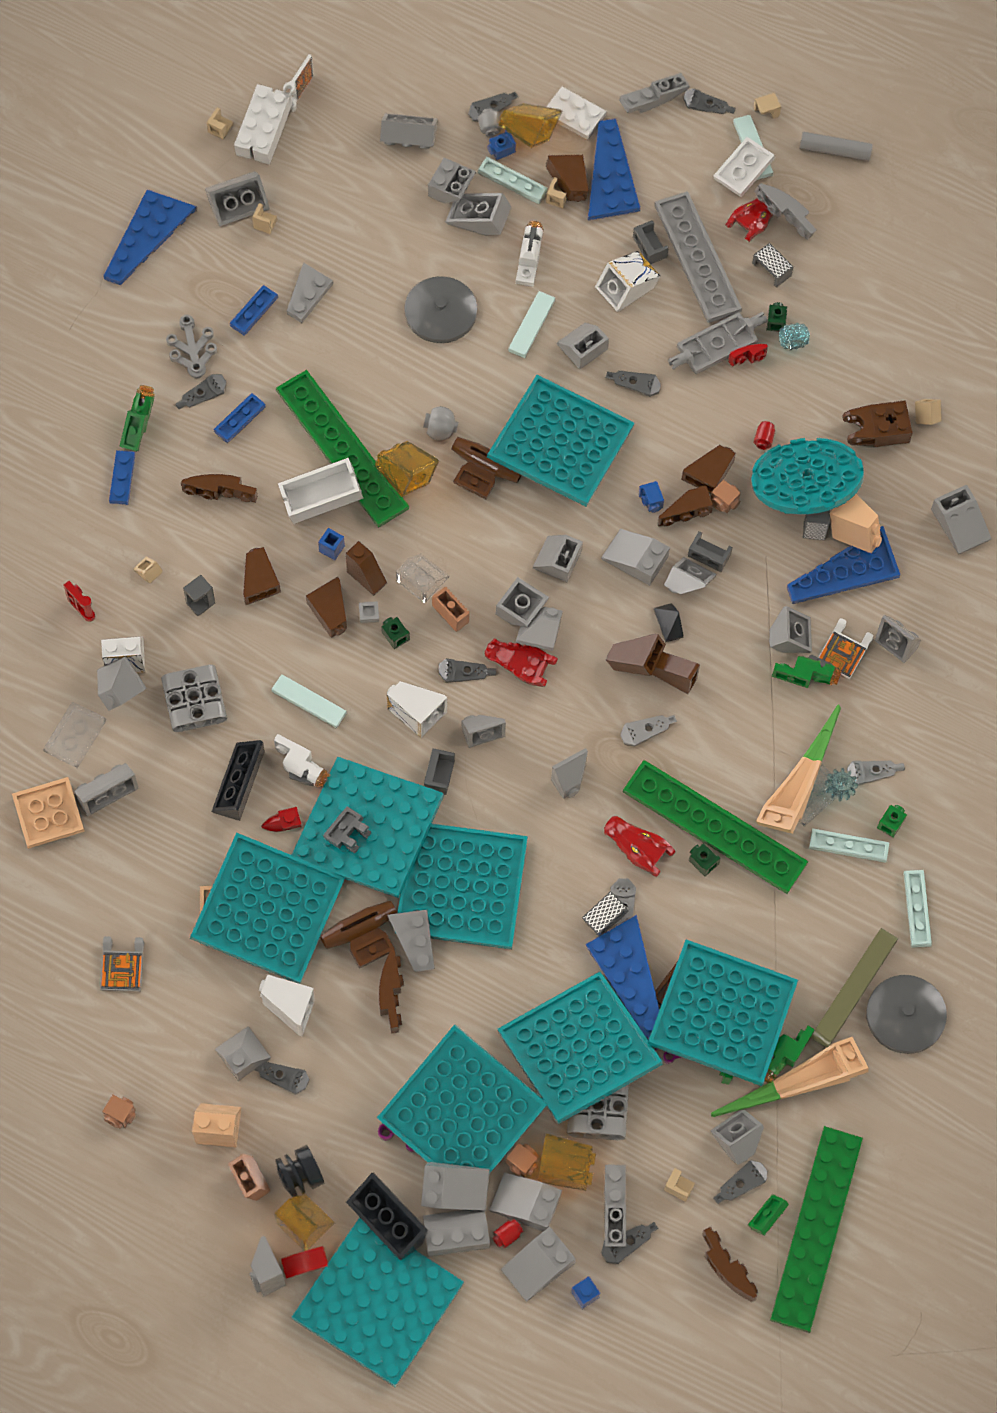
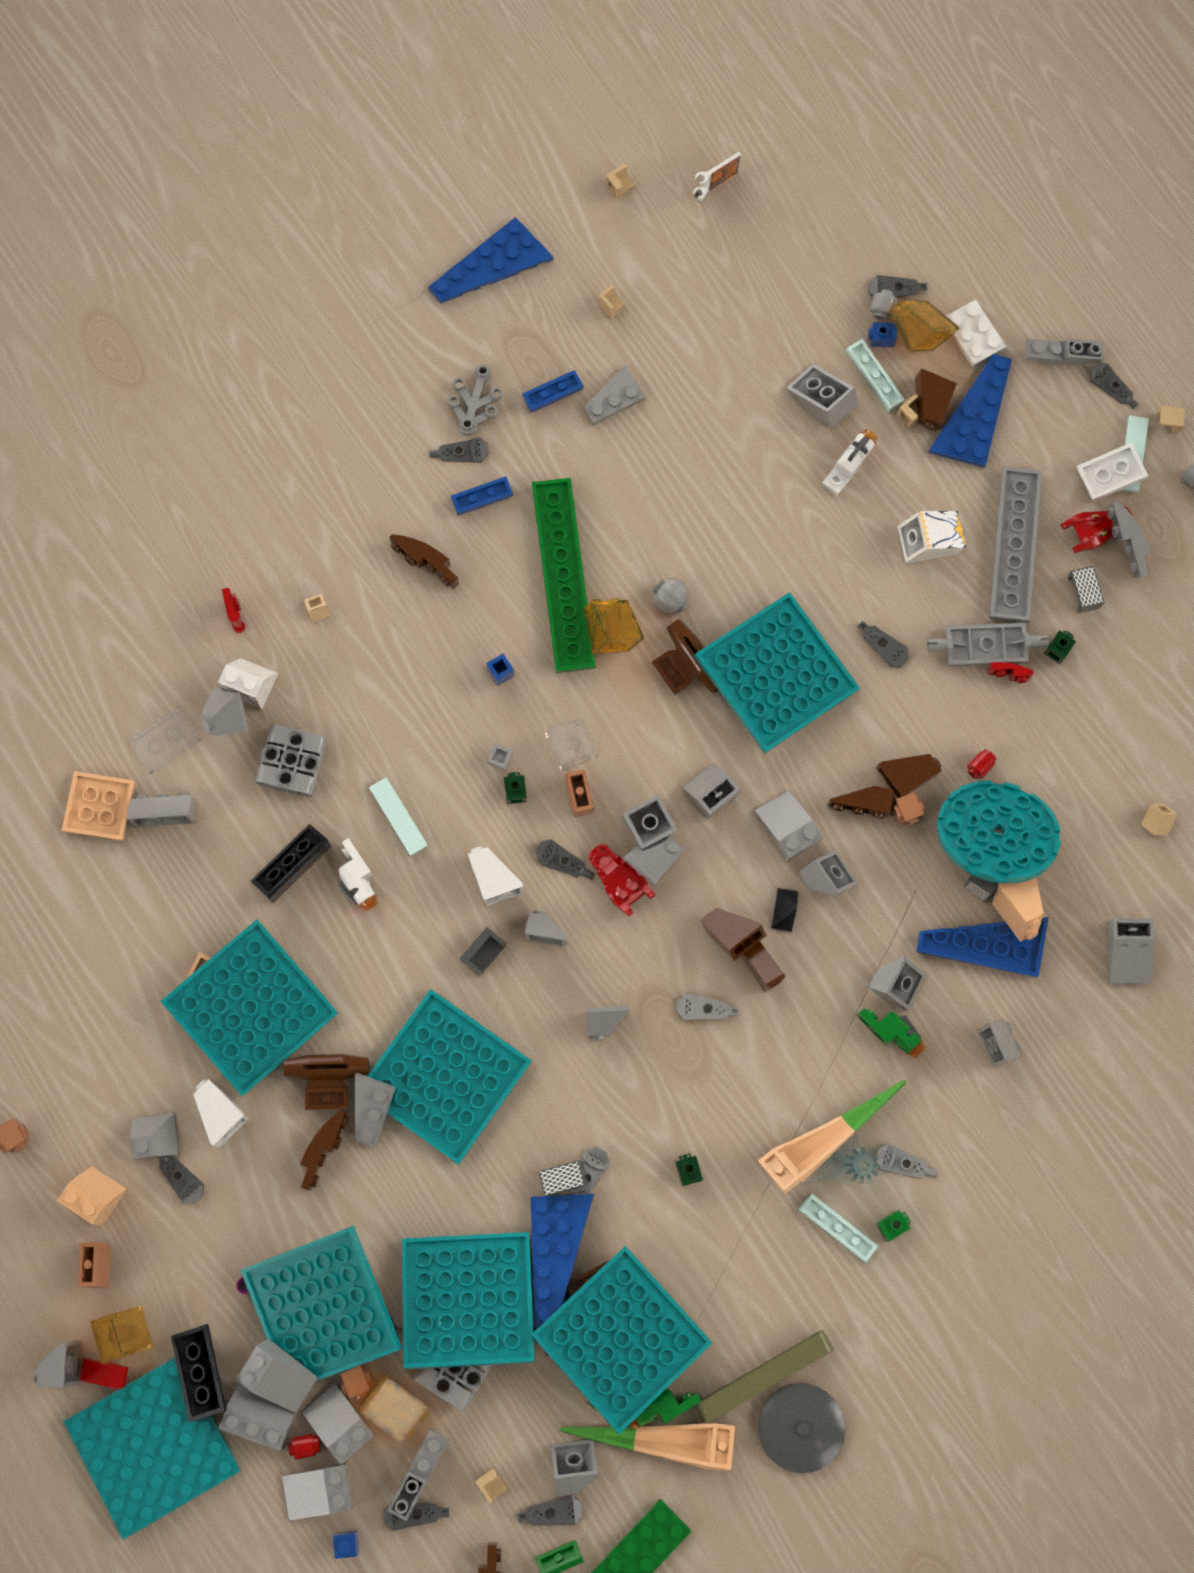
camera: 25 degrees right, 10 degrees up
(121, 968) = (87, 995): flag -> none
(122, 477) = (340, 502): blue plate -> none
(137, 418) = (383, 450): green plate -> none
(199, 595) = (347, 660): dark grey panel -> none
(237, 198) = (596, 267): light grey slope -> none
(259, 577) = (415, 668): reddish brown slope -> none
(263, 124) = (660, 202): white piece -> none
(284, 820) = (312, 924): red plate -> none
(300, 1171) = (138, 1285): black wheel -> none
(320, 490) = (517, 611): white piece -> none
(329, 607) = (466, 732): reddish brown slope -> none
(343, 827) = (359, 965): dark grey plate -> none
(364, 568) = (518, 712): reddish brown slope -> none
(396, 814) = (386, 973): teal plate -> none
(408, 130) = (799, 274): light grey slope -> none
(440, 309) = (733, 477): dark grey dish -> none
(450, 181) = (811, 349): light grey slope -> none
(531, 324) = (814, 535): light aqua tile -> none
(584, 344) = (853, 582): light grey slope -> none
(639, 845) = (635, 1124): red animal -> none
(649, 243) = (975, 507): dark grey panel -> none
(651, 496) = (835, 773): blue brick -> none
(709, 553) = (862, 859): dark grey panel -> none
(715, 826) = (718, 1143): green plate -> none
(794, 336) = (1066, 676): clear light blue gear -> none
(844, 651) = (939, 1027): flag -> none
(880, 424) = (1096, 808): reddish brown brick -> none
(917, 908) = (870, 1326): light aqua tile -> none

